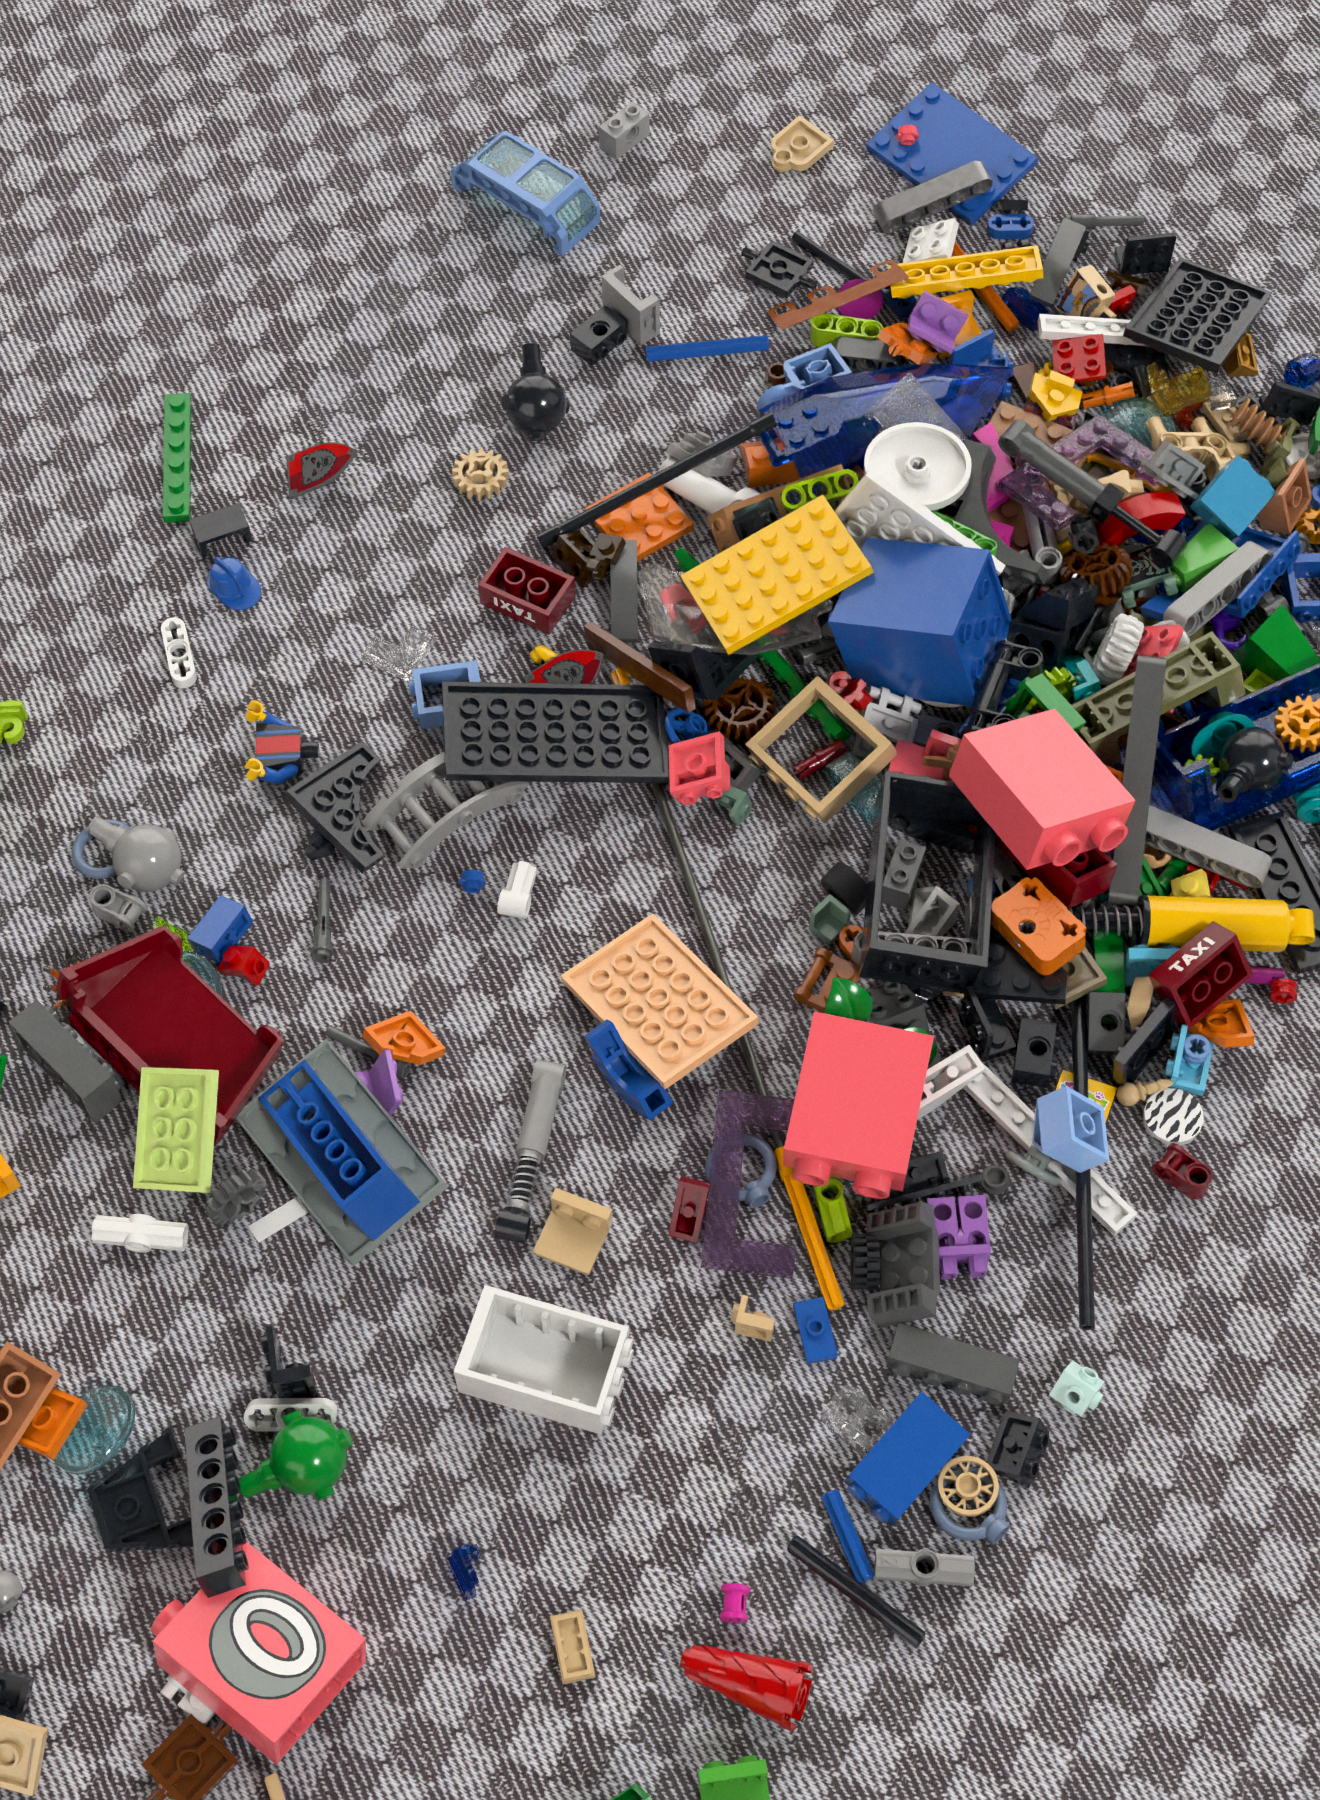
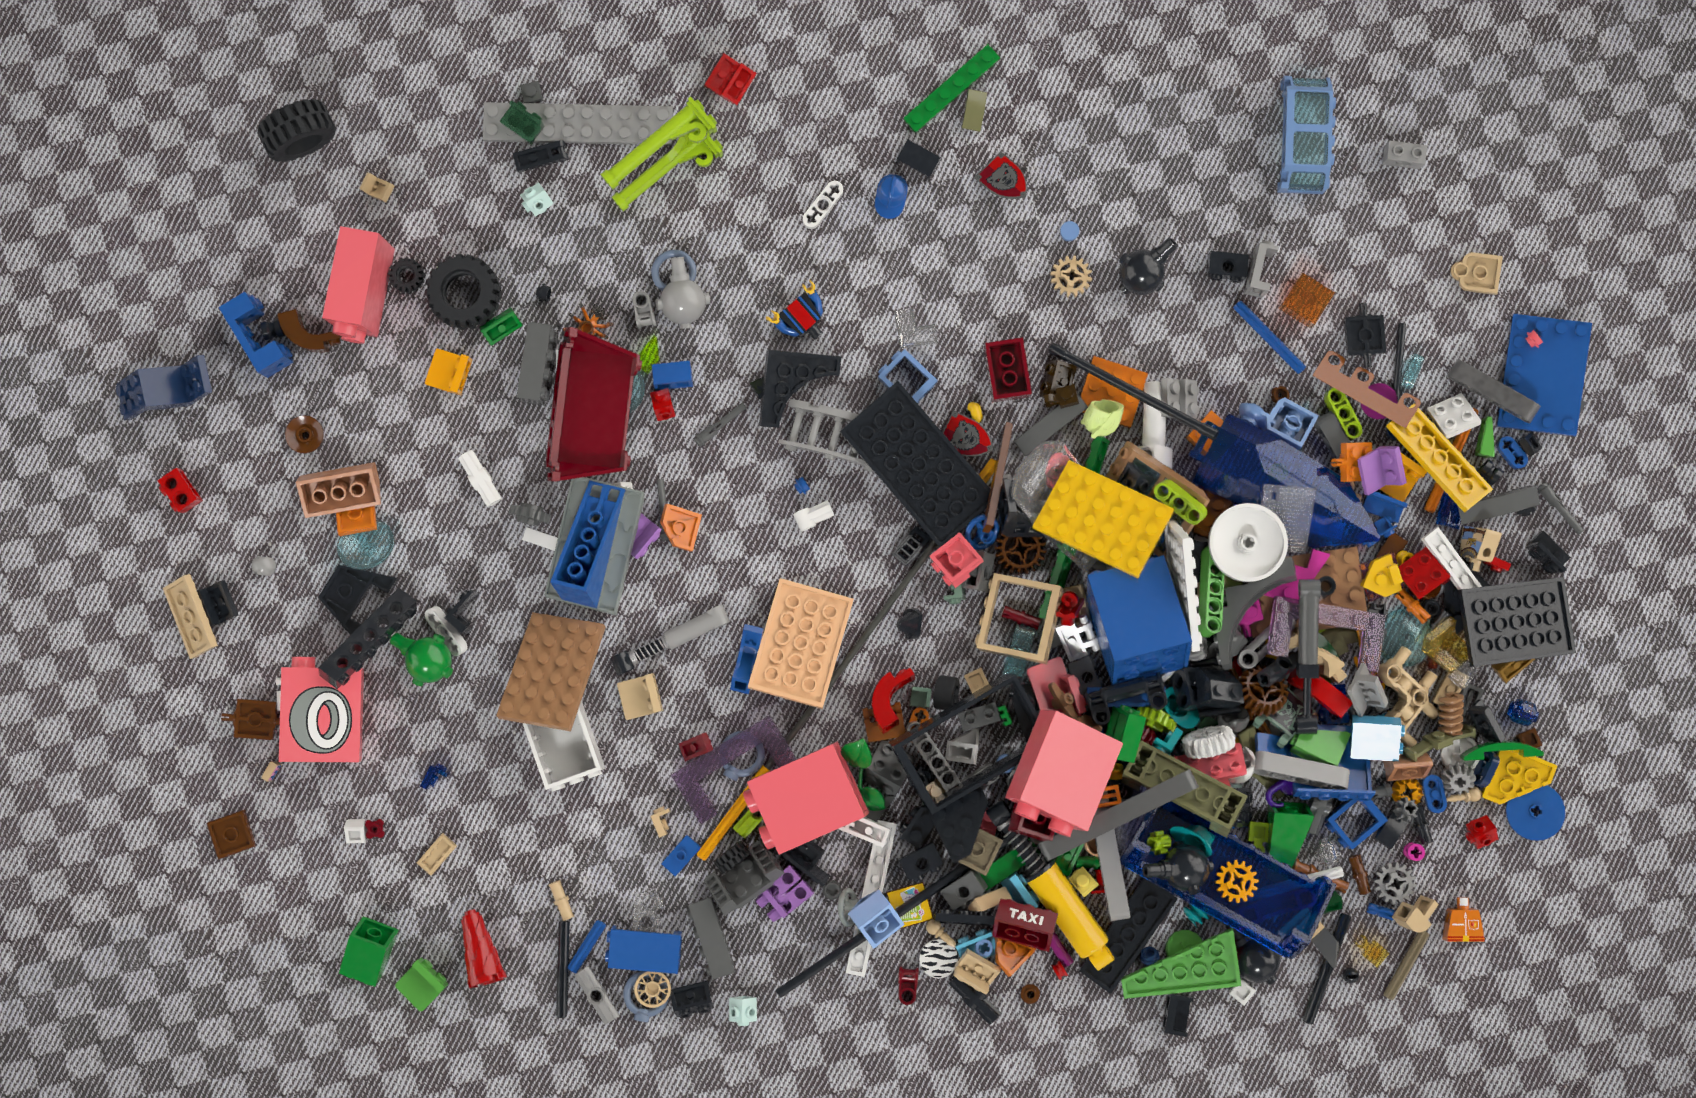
camera: 55 degrees right, 25 degrees up
(176, 1129) = (538, 456): yellowish green plate -> none
(221, 447) = (974, 110): none -> olive slope
(430, 448) = (1069, 231): none -> medium blue tile
(454, 1302) = (551, 671): none -> medium nougat plate
(454, 1741) = (355, 831): none -> white slope
(472, 1718) = (380, 828): none -> dark red plate
(647, 835) = (899, 557): none -> black slope
(661, 532) = (1102, 417): none -> yellowish green helmet
(697, 291) = (1306, 300): none -> clear orange brick
(734, 867) = (910, 623): none -> black piece
(734, 1603) = (513, 916): dark pink bush -> none
(761, 1523) = (561, 900): none -> tan pin
(806, 962) = (885, 689): none -> red arch
(853, 252) = (1412, 371): none -> clear light blue beam
(857, 850) = (976, 680): none -> tan bracket
(924, 829) = (1005, 715): none -> green tile
(978, 235) = (1485, 440): none -> bright green slope
(1038, 925) = (990, 823): orange axle -> none
(1122, 281) = (1518, 559): dark brown plate -> none
(1220, 1073) = (976, 971): none -> tan bracket
(1253, 1106) = (975, 1000): none -> black piece
(1287, 1049) = (1030, 987): none -> reddish brown plate

